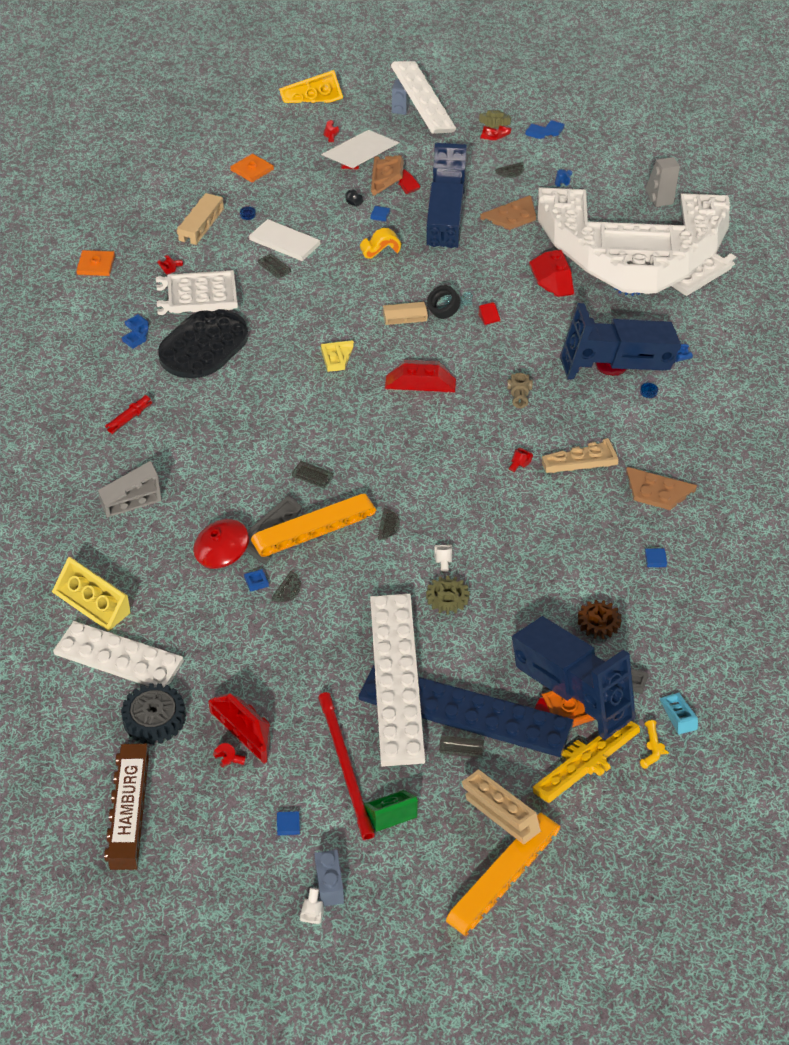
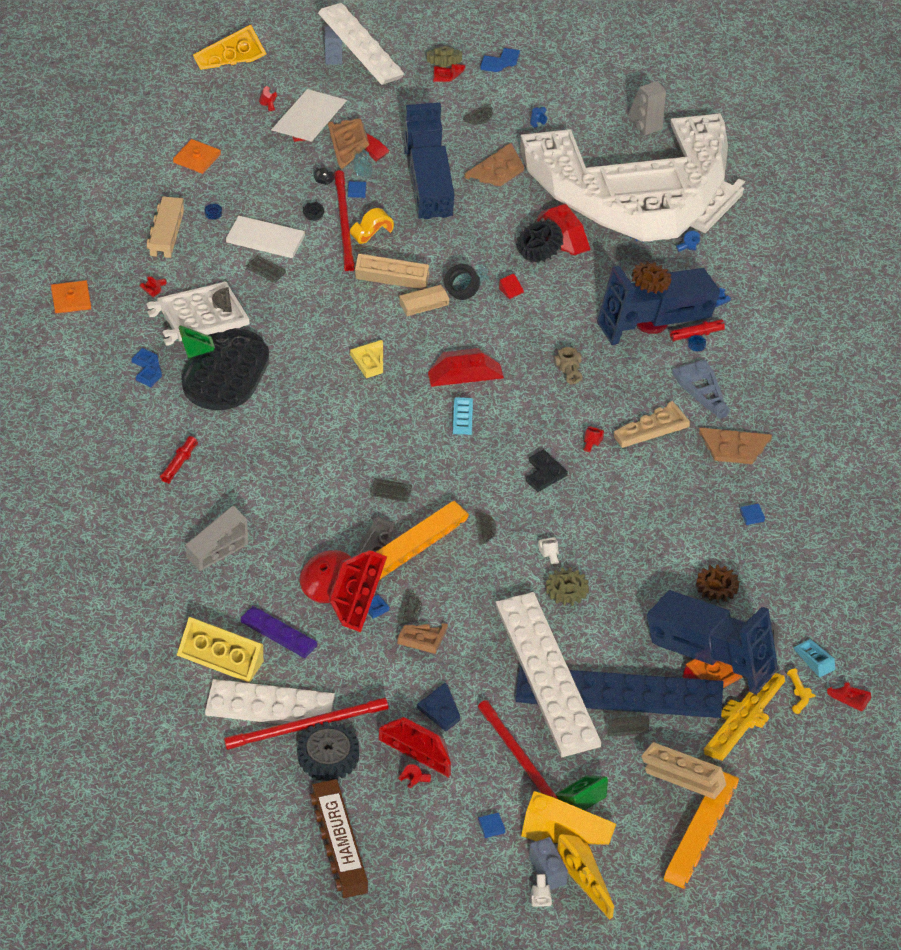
camera: 15 degrees left, 0 degrees up
(76, 685) = (243, 739): none -> red piece
(155, 587) = (278, 632): none -> dark purple plate
(181, 315) = (195, 342): none -> green slope
(220, 283) = (221, 300): none -> clear smoke tile
(236, 558) = (356, 587): none -> red wedge
(281, 691) = (440, 708): none -> dark blue wing
(289, 618) = (422, 637): none -> medium nougat wing
(334, 225) = (313, 211): none -> black plate
(350, 267) = (348, 258): none -> red piece
(359, 838) = (553, 817): none -> yellow wedge
(362, 884) = (584, 871): none -> yellow wedge
(383, 283) = (392, 271): none -> tan brick
(391, 195) = (362, 166): none -> clear light blue plate
(406, 409) = (462, 405): none -> medium azure slope
(467, 482) = (547, 471): none -> black plate
(527, 278) = (540, 240): none -> black gear
(614, 320) = (651, 277): none -> reddish brown gear
(642, 415) = (698, 371): none -> sand blue plate
(655, 378) = (700, 329): none -> red pin
(669, 299) = (691, 239): none -> blue piece
(706, 761) = (851, 696): none -> red slope

